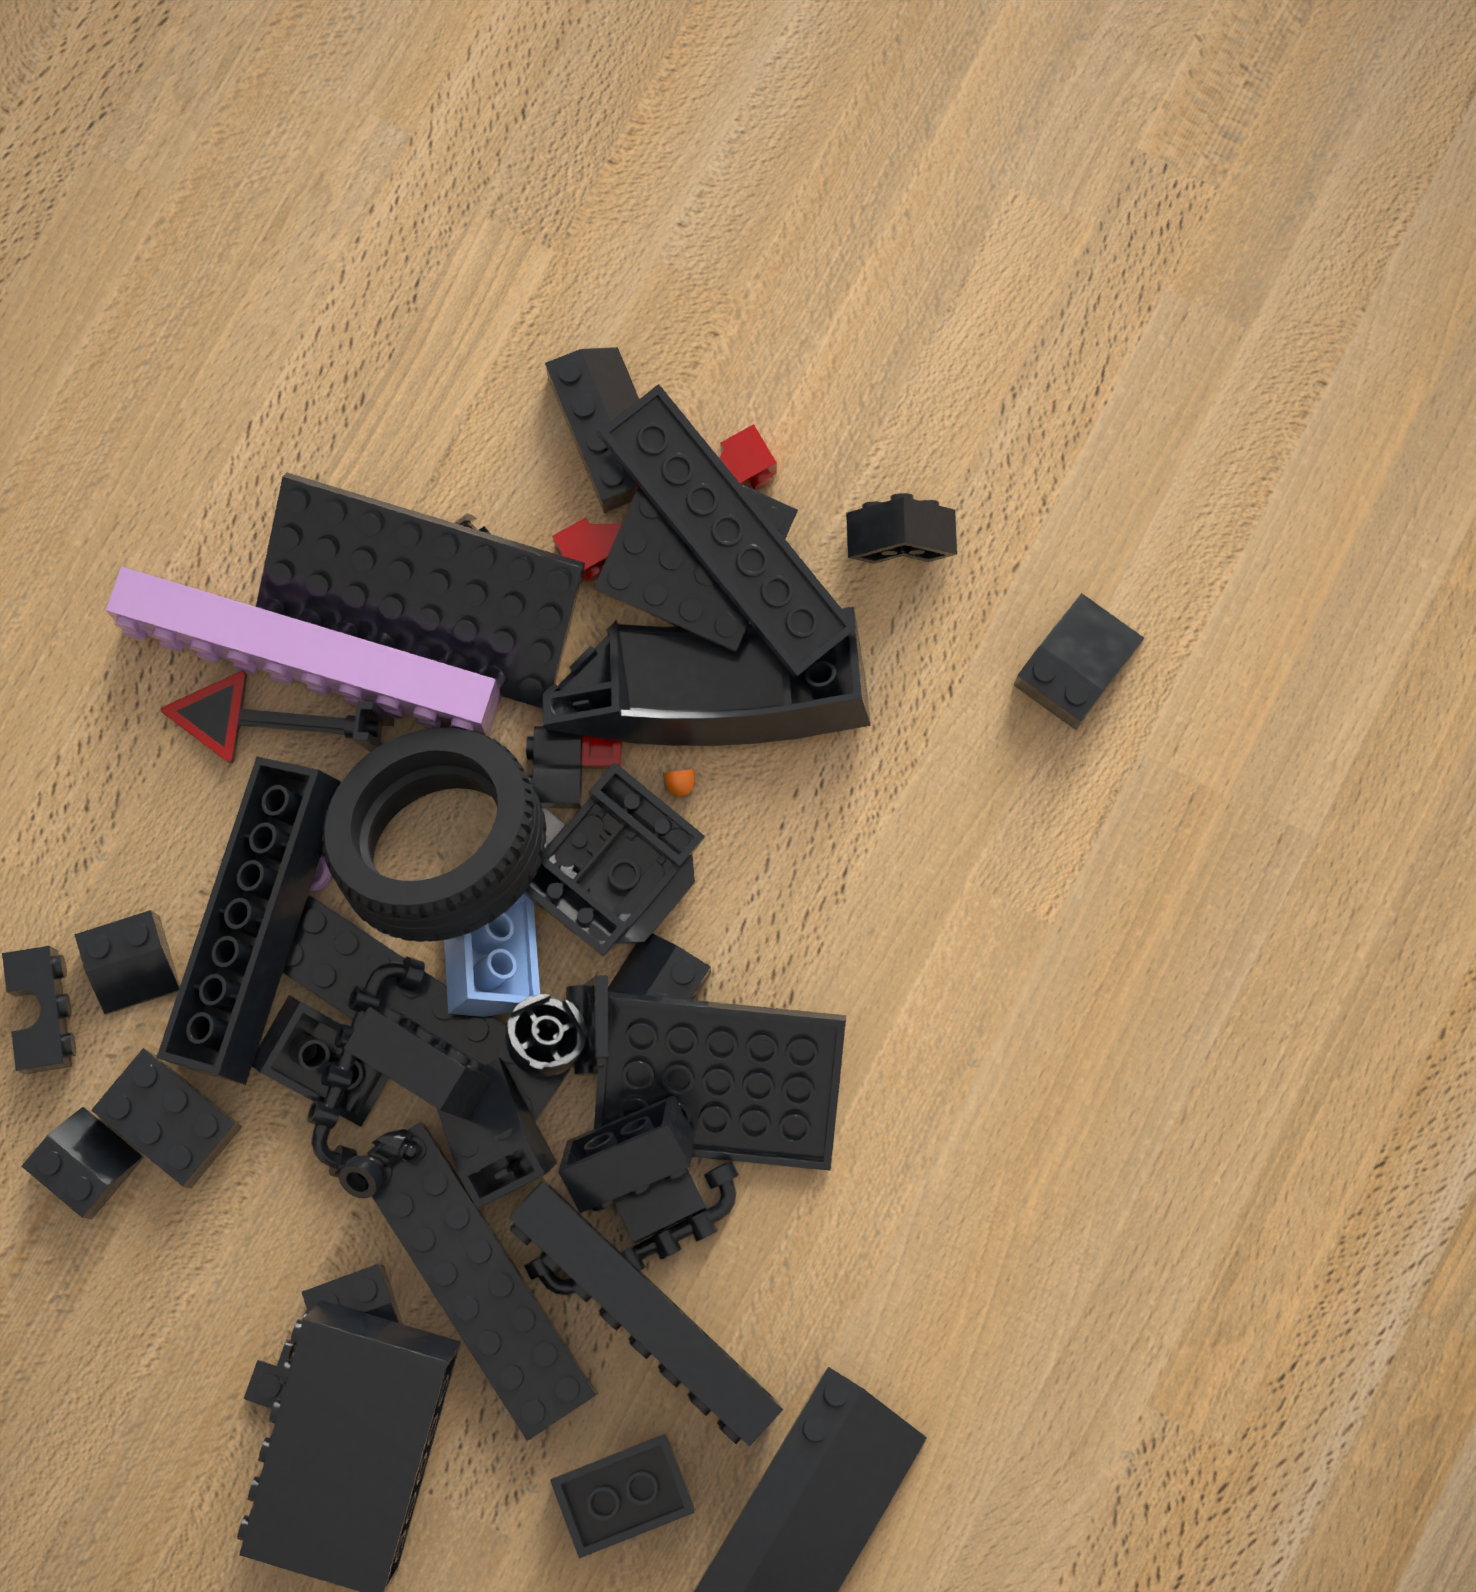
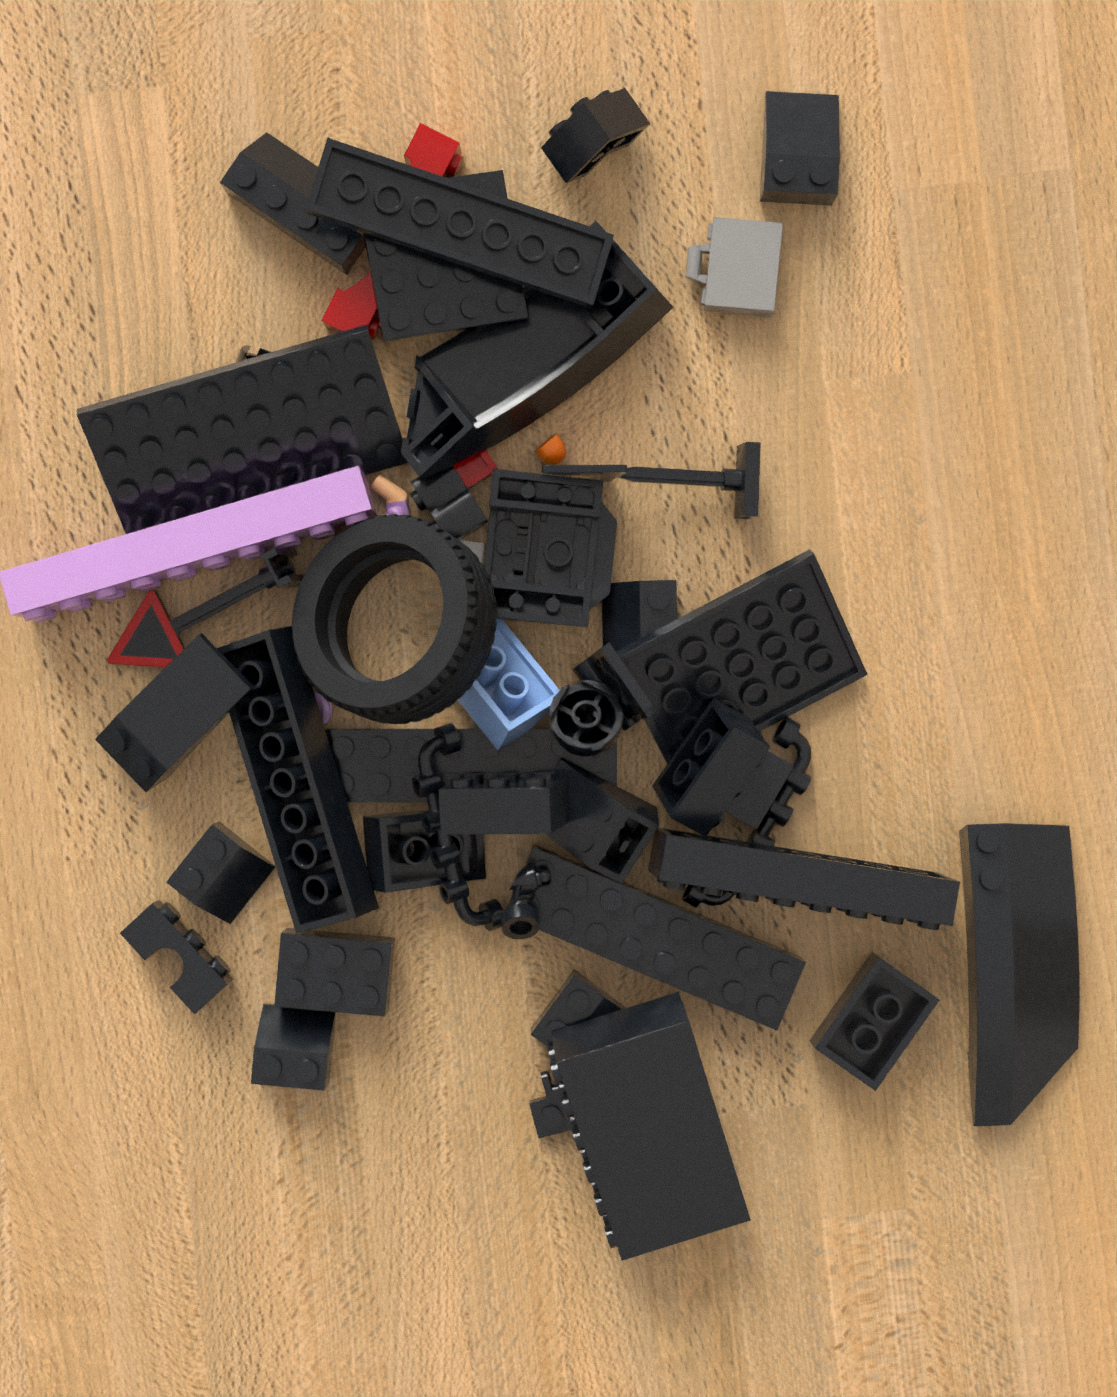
camera: 35 degrees left, 10 degrees up
(185, 791) = (174, 713): none -> black slope
(513, 732) = (396, 498): none -> light nougat arm
(829, 917) = (742, 480): none -> black piece
(955, 729) = (740, 266): none -> light grey piece

